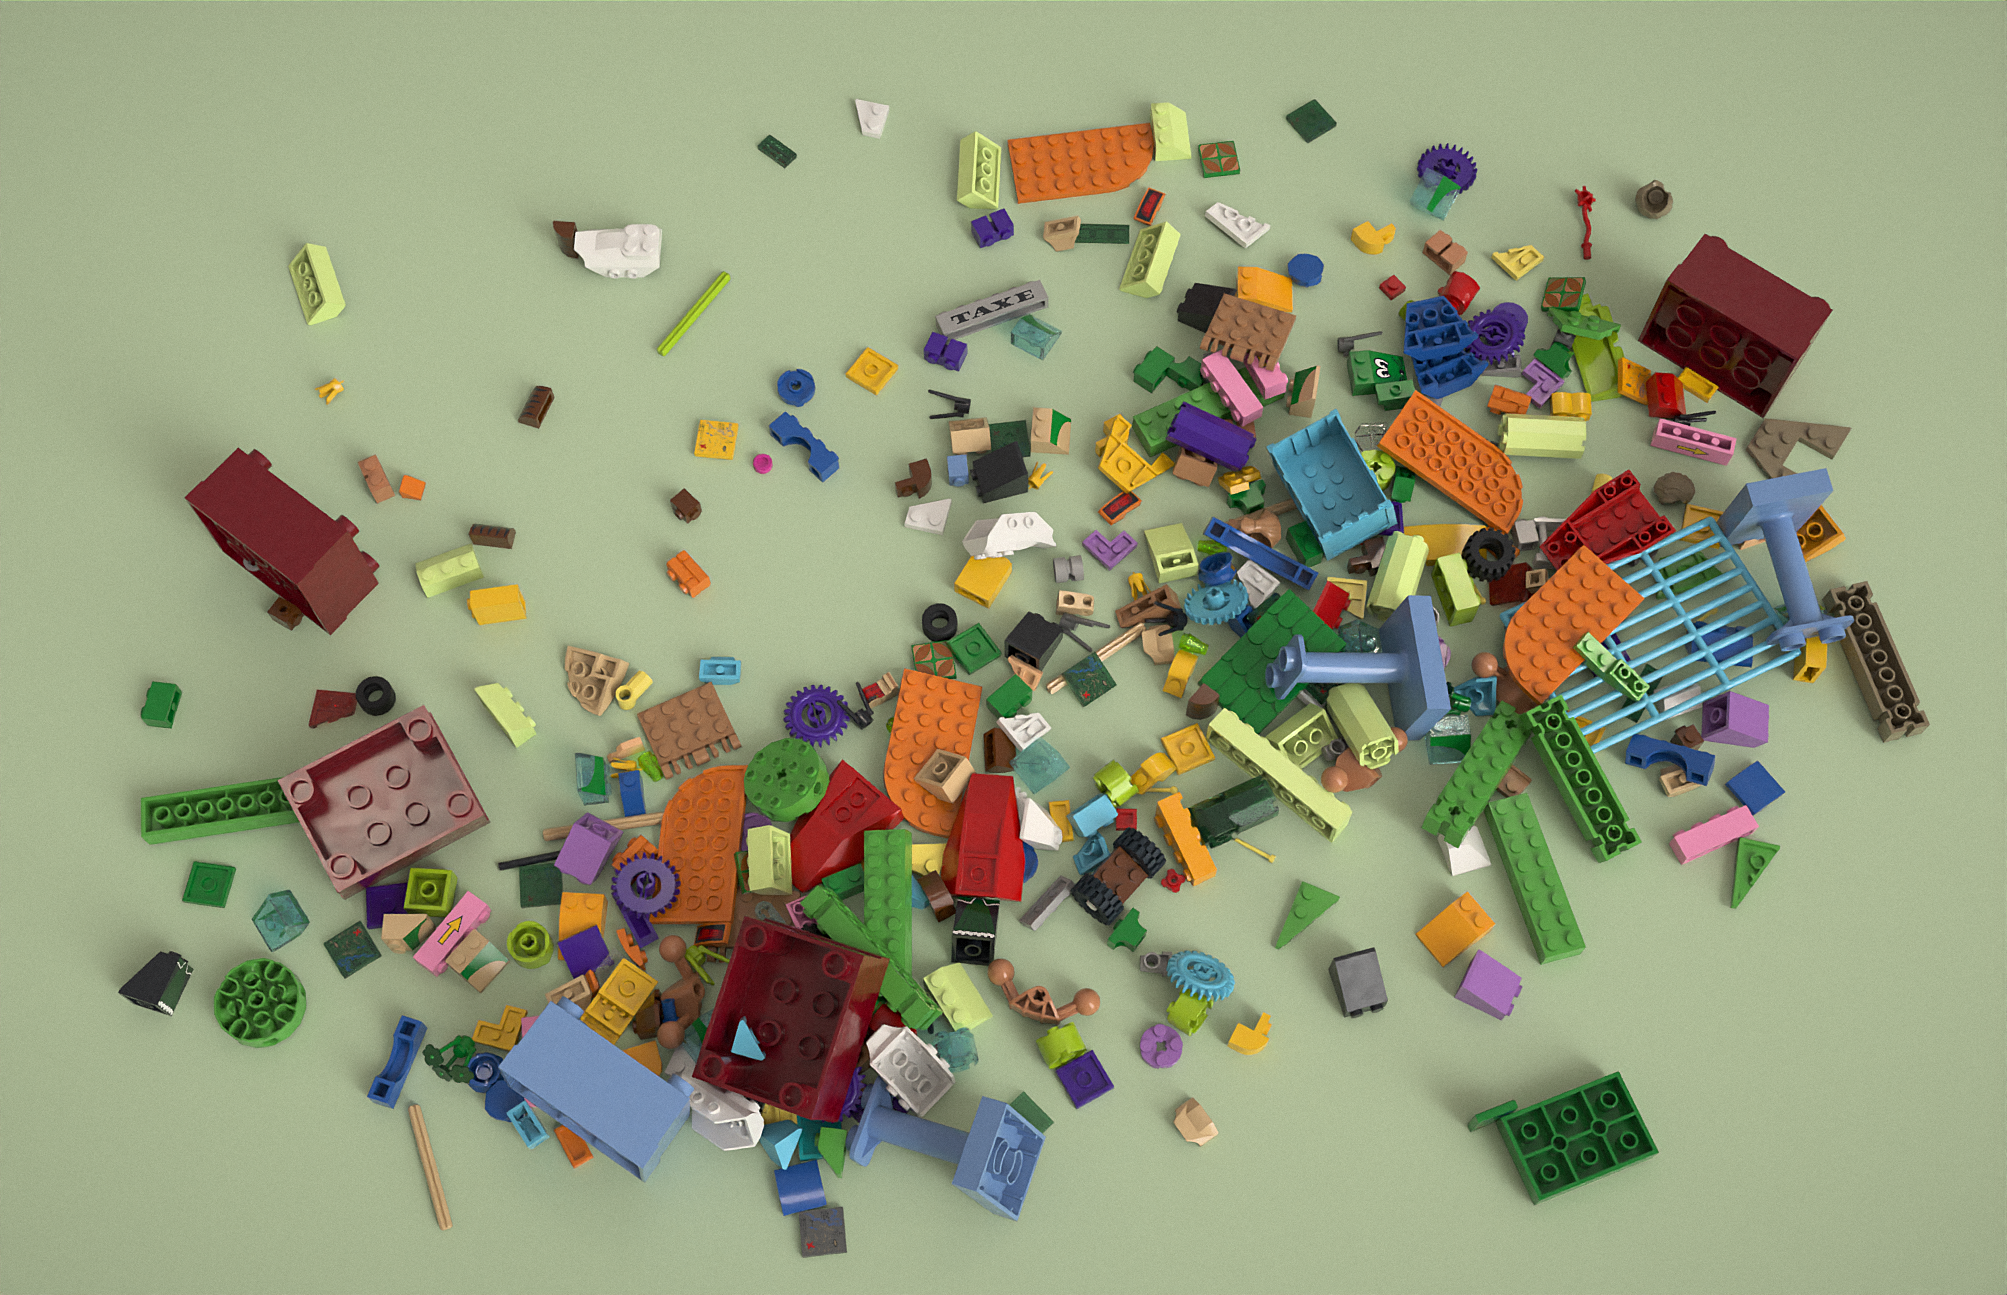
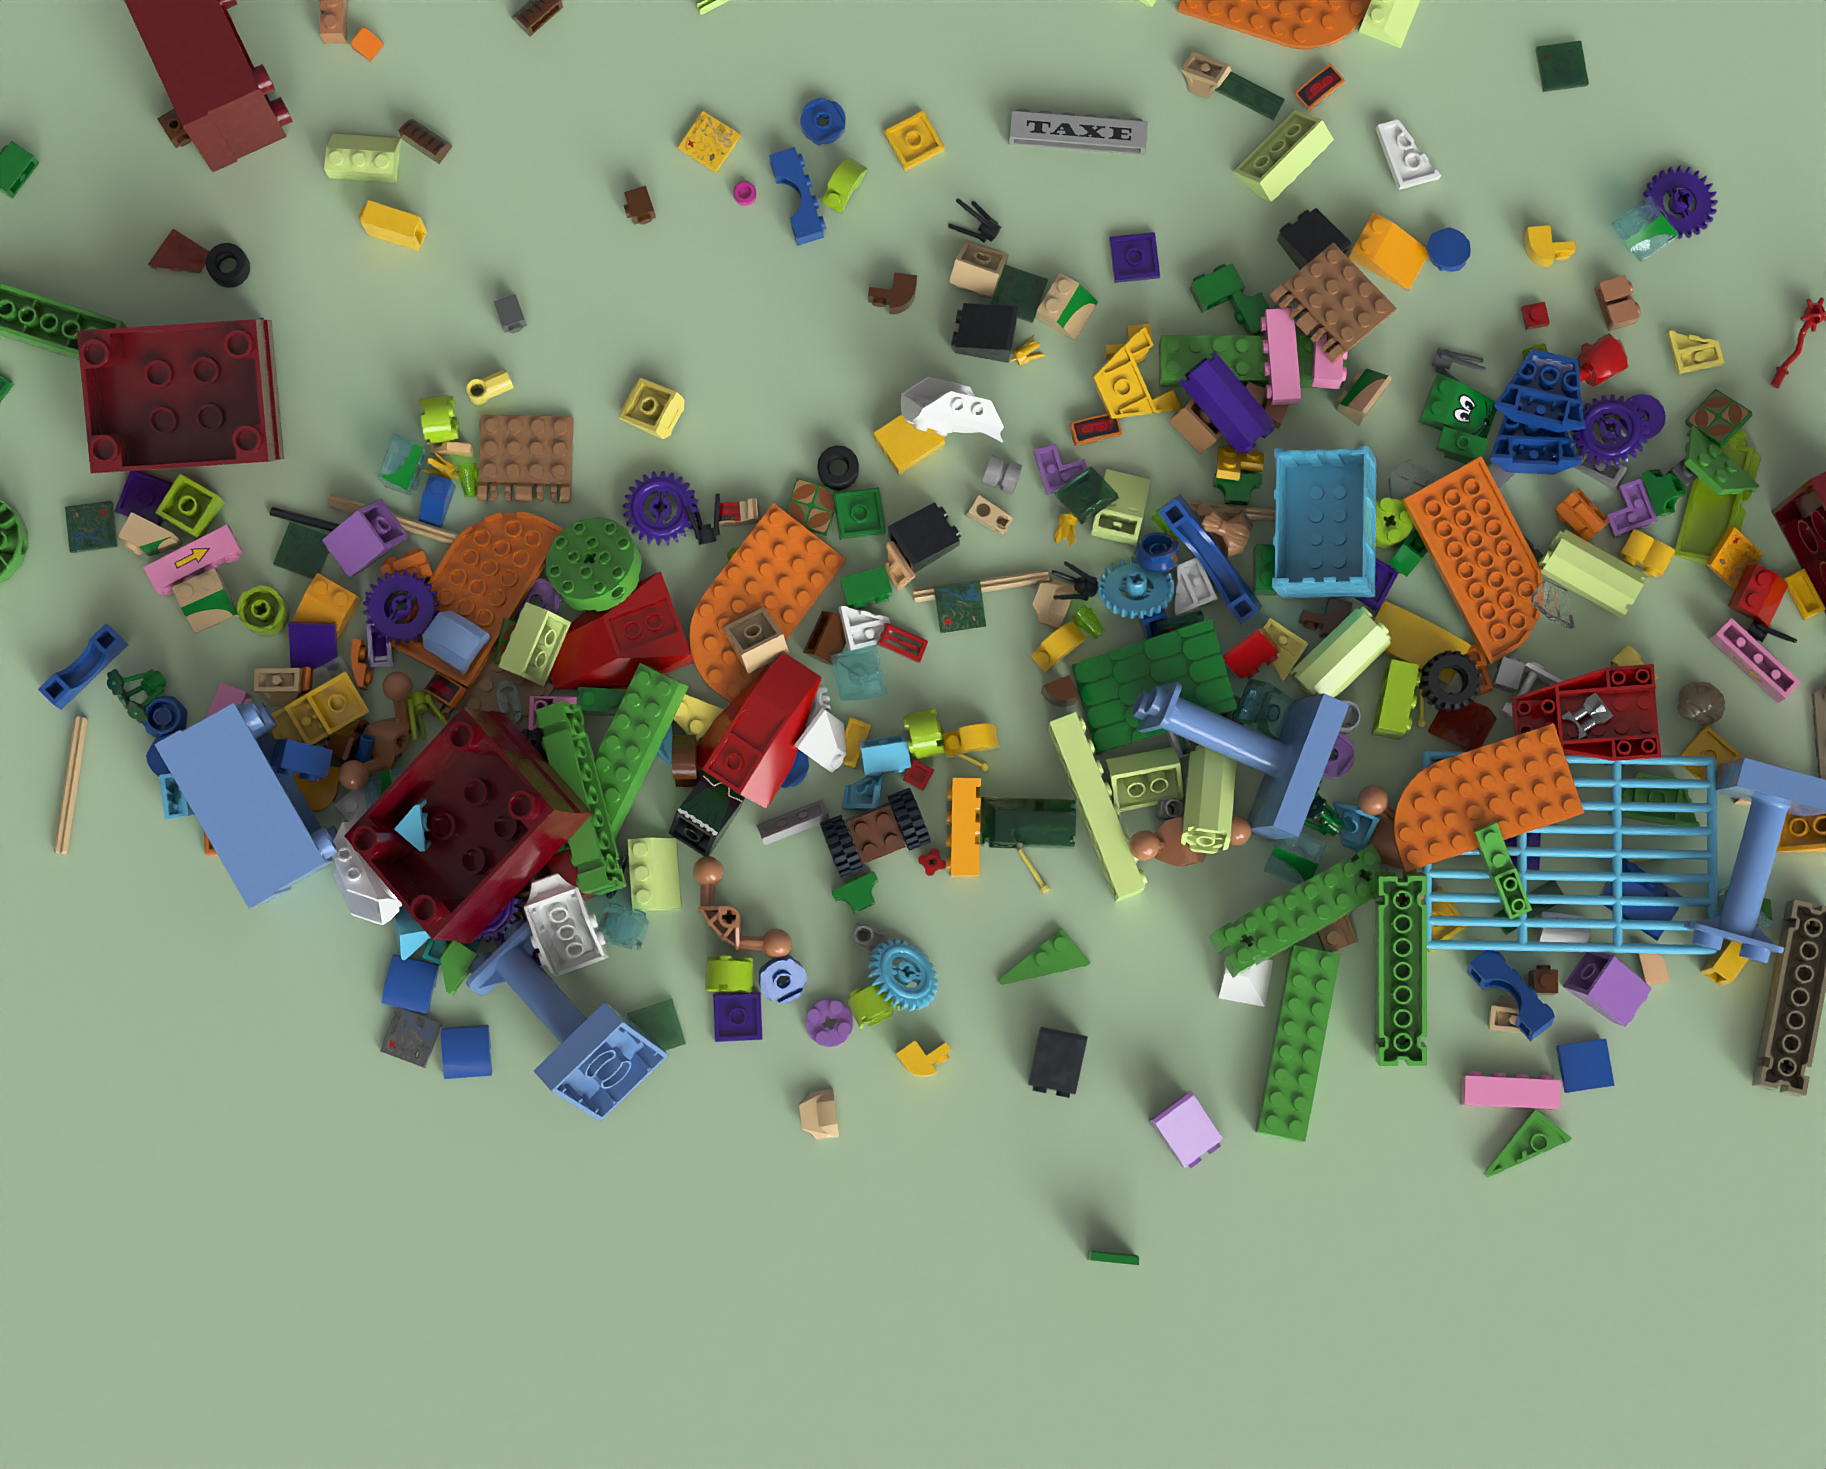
camera: 25 degrees right, 15 degrees up
(280, 919) = (34, 461): clear light blue slope -> none
(503, 1035) = (197, 689): yellow plate -> none
(506, 713) = (349, 350): yellowish green slope -> none
(593, 678) = (456, 353): tan brick -> none
(605, 730) = (439, 419): none -> lime brick
(623, 629) = (510, 314): none -> dark grey brick
(629, 1037) = (301, 758): none -> blue brick
(688, 574) = (605, 284): orange brick -> none
(702, 889) = (454, 640): none -> light blue slope
(720, 670) = (588, 408): medium azure slope -> none
(771, 645) = (652, 408): none -> light yellow slope
(835, 423) = (842, 184): none -> lime brick
(875, 1220) = (466, 1051): none -> blue slope
(929, 516) = (889, 340): white wing -> none
(940, 353) = (1005, 162): dark purple piece -> none
(957, 470) = (945, 303): medium blue brick -> none
(988, 232) = (1131, 34): dark purple piece -> none
(1034, 336) = (1110, 184): clear light blue slope -> none
(1071, 622) = (974, 533): dark grey plant -> none
(1074, 730) = (884, 635): none -> red tile
(1081, 377) = (1134, 257): none -> dark purple tile
(1116, 1028) = (794, 982): none -> plate
(1141, 552) = (1086, 495): none -> clear green tile
(1144, 607) = (1053, 556): medium nougat slope -> none
(1188, 748) = (1022, 730): yellow tile -> none
(1219, 159) = (1430, 65): tile -> none
(1455, 929) = (1187, 1055): light orange slope -> none
(1526, 470) = (1553, 603): none -> clear slope
(1536, 579) = (1490, 733): tan leg -> none
(1576, 1138) = (1185, 1320): green brick -> none
(1604, 523) = (1595, 709): none -> flat silver piece
(1757, 690) = (1653, 968): none -> light nougat tile

